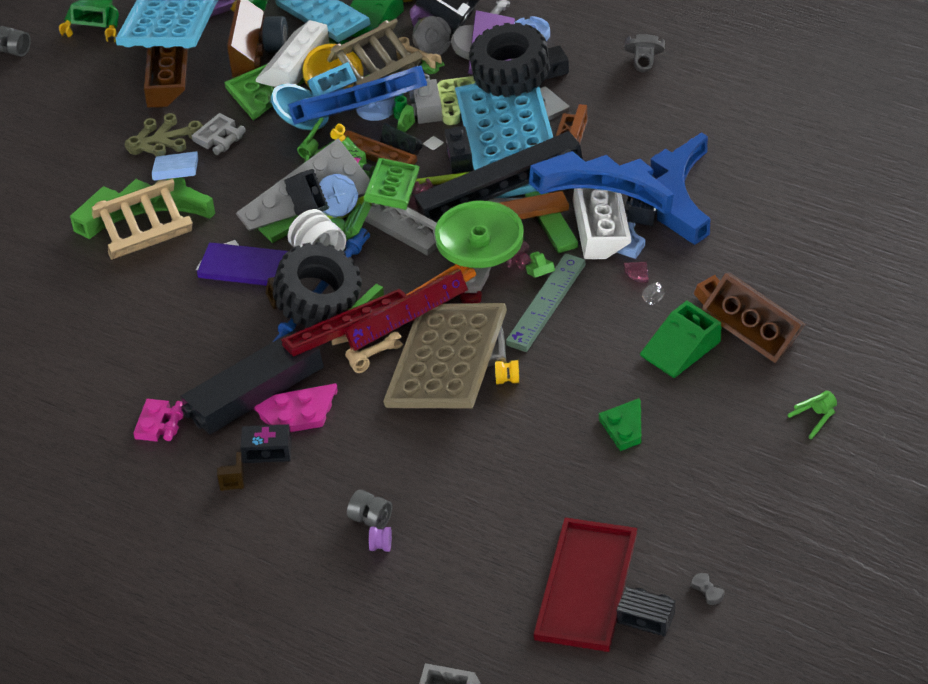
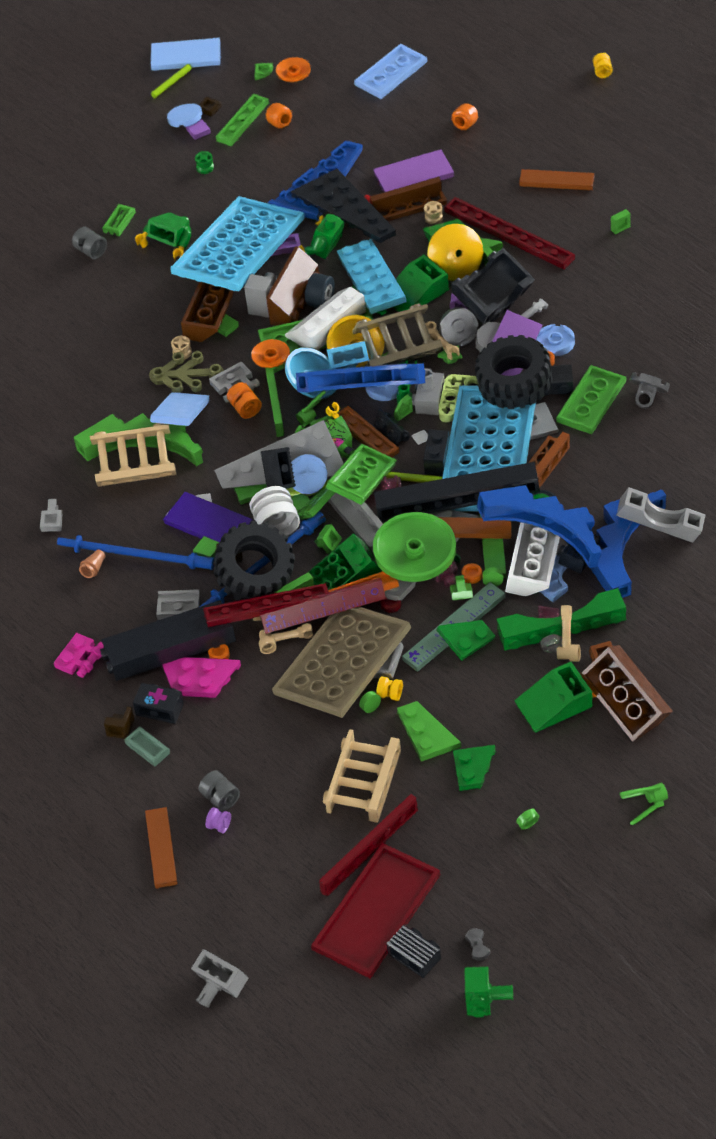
camera: 20 degrees right, 5 degrees up
(36, 15) = (122, 220): none -> bright green tile
(74, 298) = (52, 518): none -> light grey plate
(137, 331) = (90, 566): none -> nougat cone
(149, 110) = (182, 345): none -> tan wheel
(191, 87) = (228, 325): none -> bright green tile
(215, 50) = (256, 291): none -> light grey brick
(237, 146) = (244, 400): none -> orange wheel
(244, 303) = (193, 560): none -> blue bar
(244, 344) = (176, 602): none -> light grey plate
(249, 97) = (270, 353): none -> orange dish
(254, 289) = (205, 547): none -> bright green tile
(269, 141) = (274, 402): none -> bright green tile
(269, 488) = (147, 746): none -> sand green tile
(311, 381) = (220, 652): none -> orange tile
(327, 582) = (161, 847): none -> dark orange tile
(380, 251) = (328, 539): none -> bright green tile
(411, 267) = (345, 564): none -> green slope
(492, 389) = (370, 701): none -> bright green tile
(536, 466) = (378, 788): none -> tan fence
(543, 247) = (472, 573): none -> orange tile
(551, 523) = (368, 845): none -> dark red tile
(562, 405) = (426, 732): none -> bright green wing
(564, 307) = (466, 637): none -> green wing
(566, 245) = (492, 575): none -> bright green tile
(590, 74) = (591, 399): none -> bright green tile
(619, 288) = (523, 630): none -> green arch
(672, 295) = (567, 651): none -> tan brick
(706, 457) = (527, 819): none -> bright green tile
(734, 158) = (679, 523): none -> light grey arch
(737, 628) = (481, 993): none -> green brick

